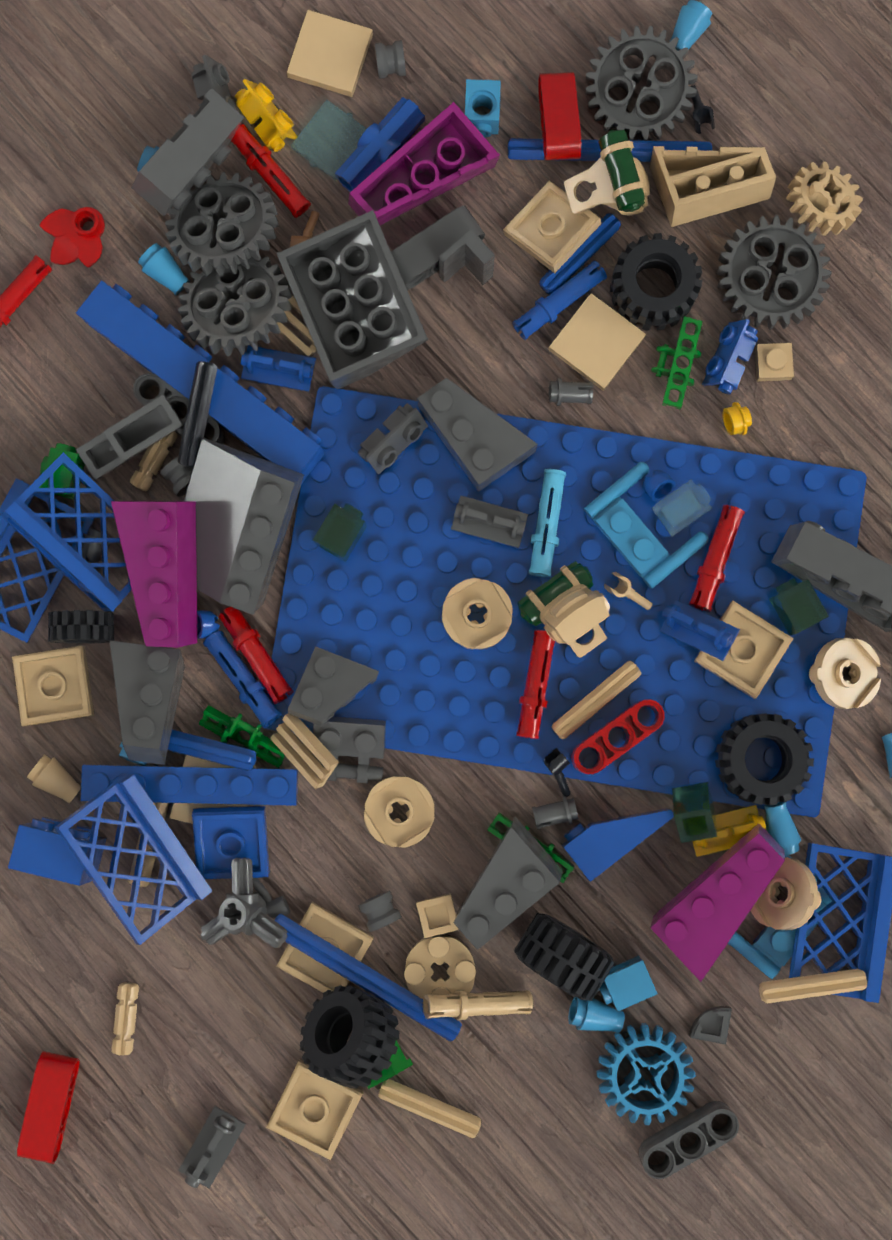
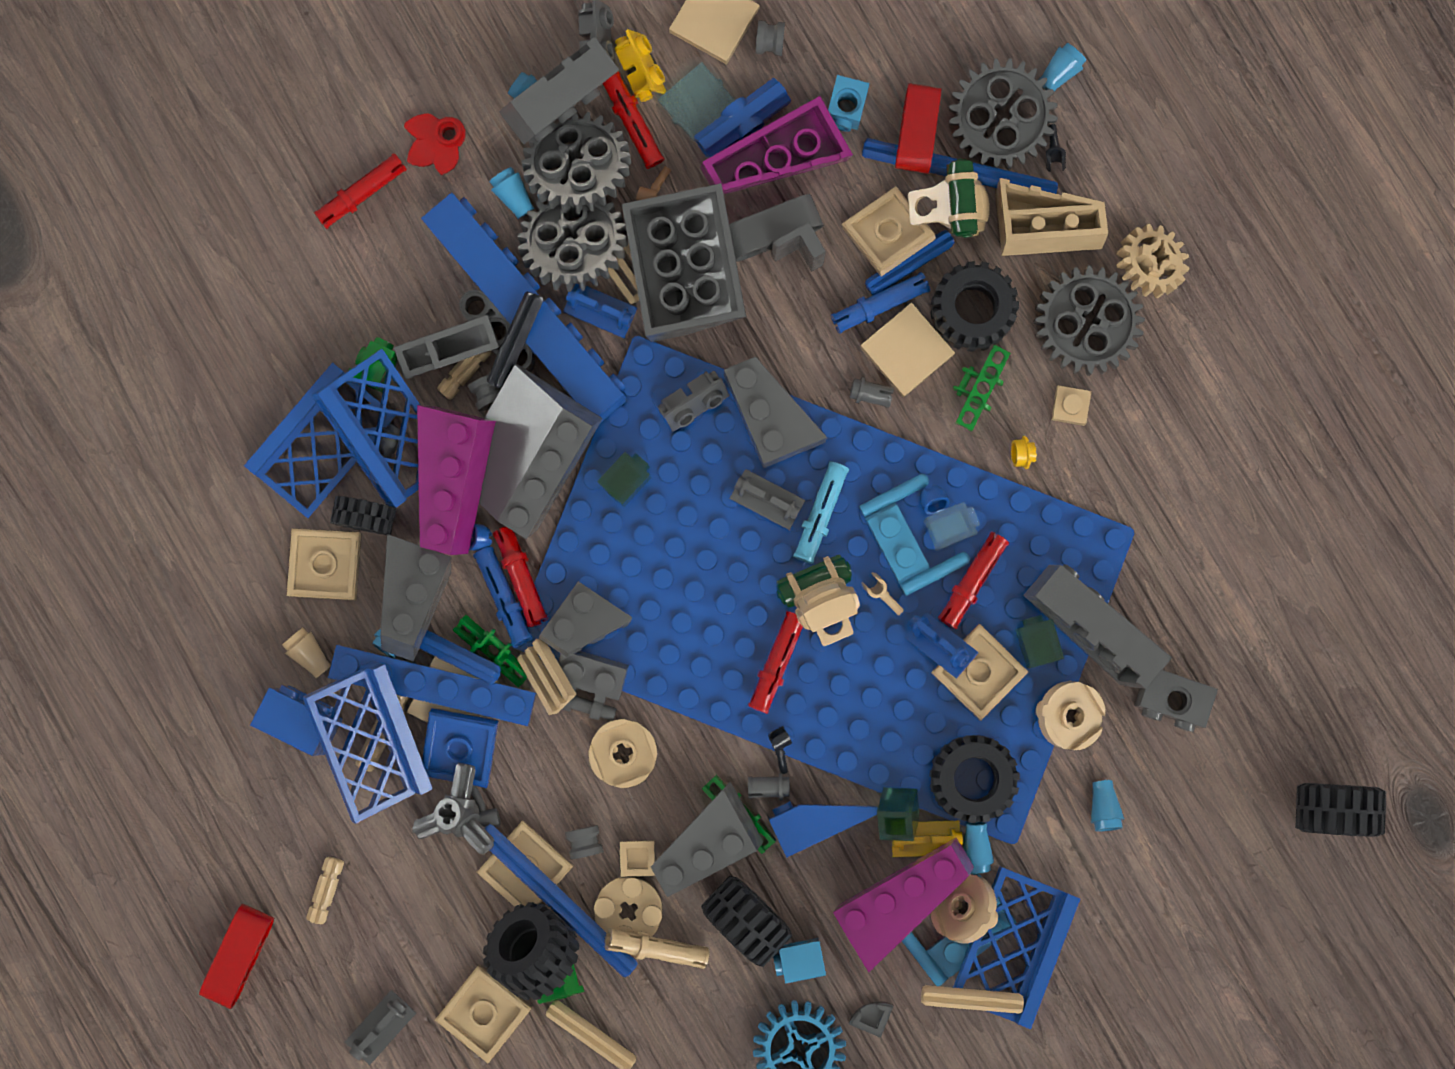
camera: 10 degrees right, 0 degrees up
(482, 594) = (753, 594): tan plate -> none
(595, 1016) = (764, 984): dark azure cone -> none
(596, 699) = (830, 689): tan axle -> none
(634, 732) = (859, 726): red beam -> none
(735, 341) = (1038, 378): blue hinge -> none

